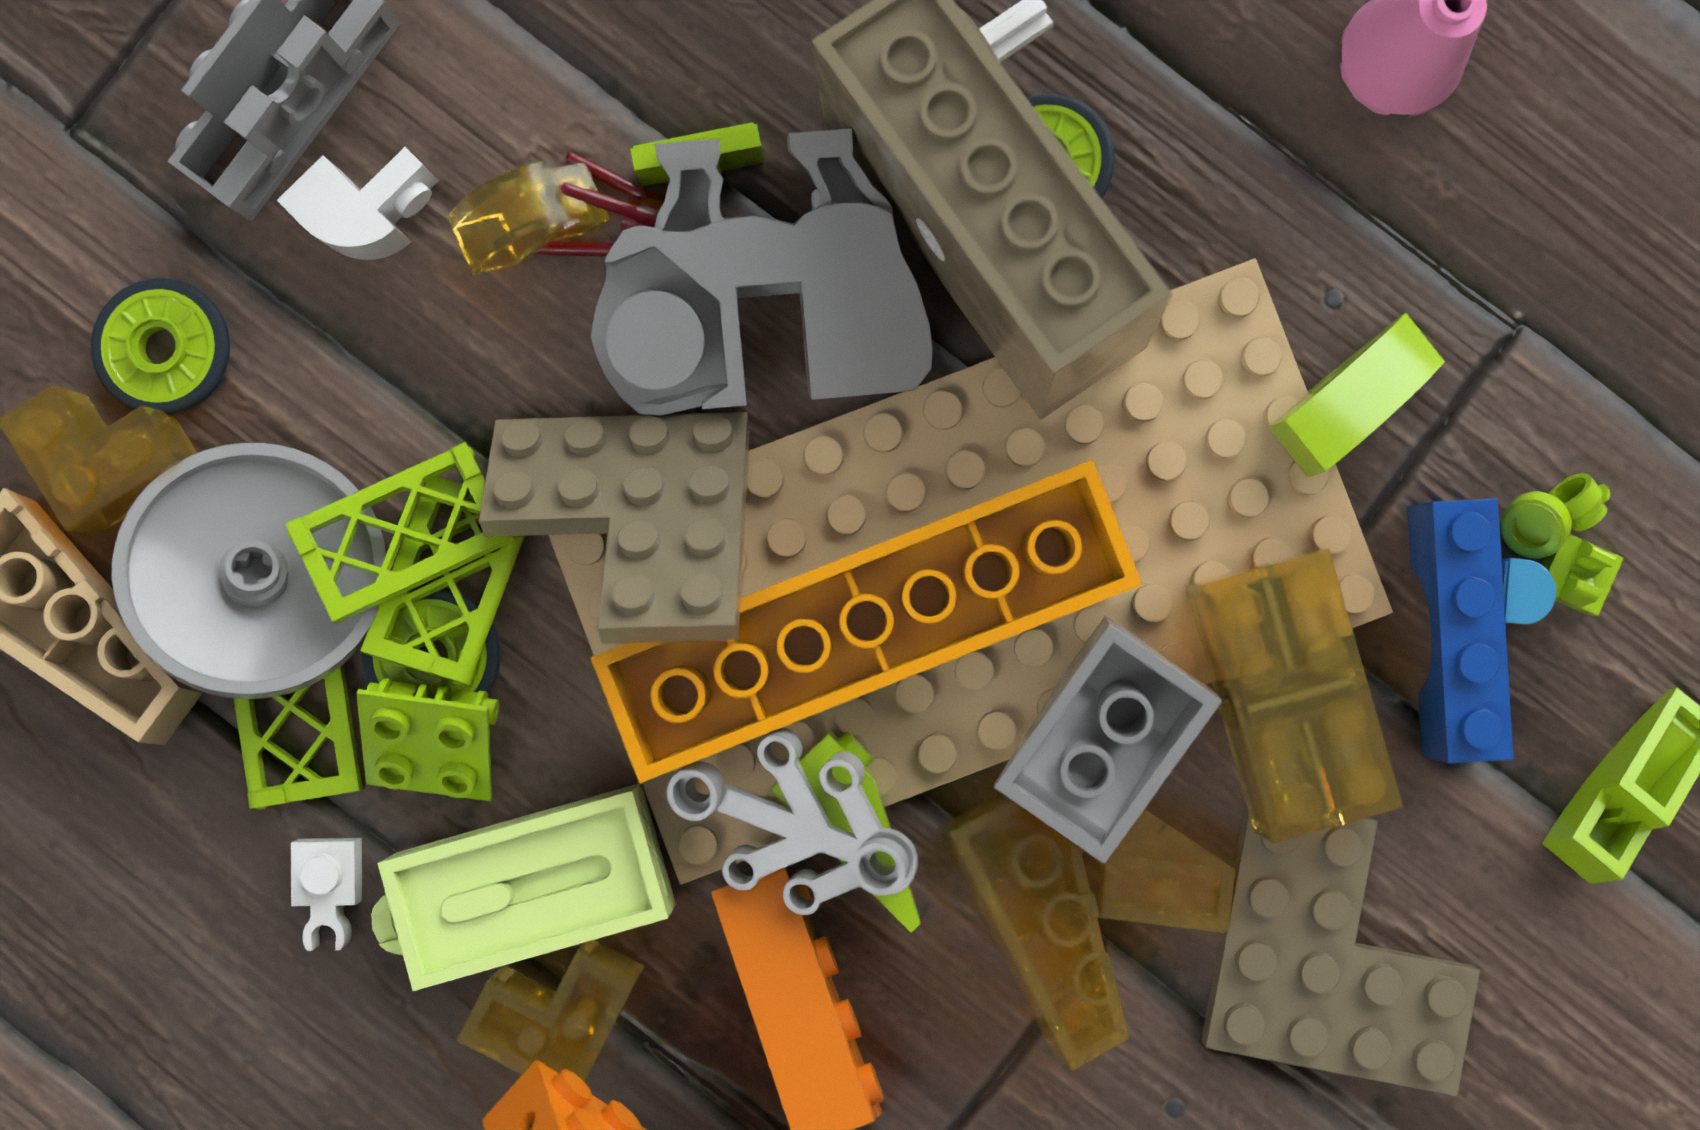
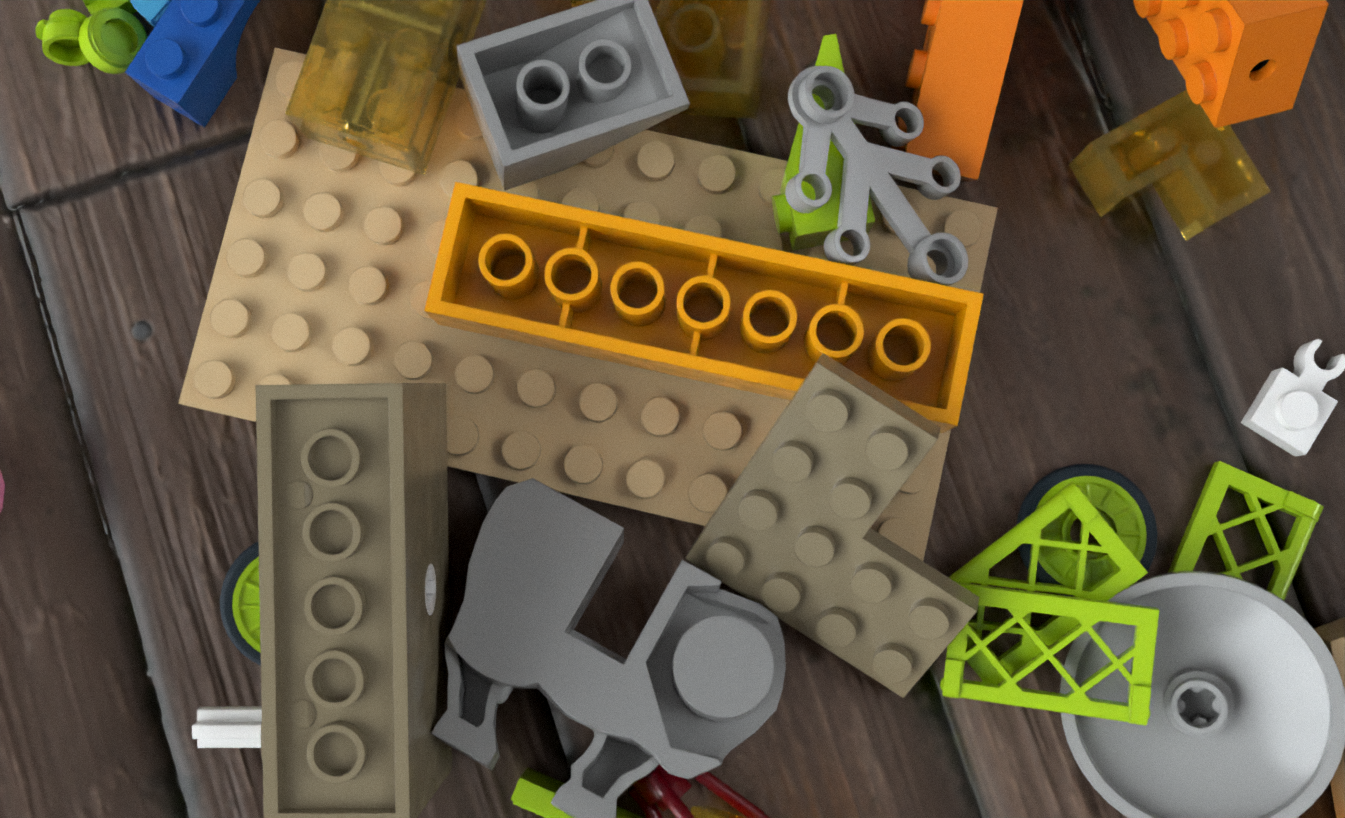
camera: 140 degrees left, 5 degrees down
(427, 741) = (1139, 458): lime hinge -> none
(523, 887) = (1133, 285): yellowish green piece -> none
(1357, 397) = (179, 232): lime slope -> none

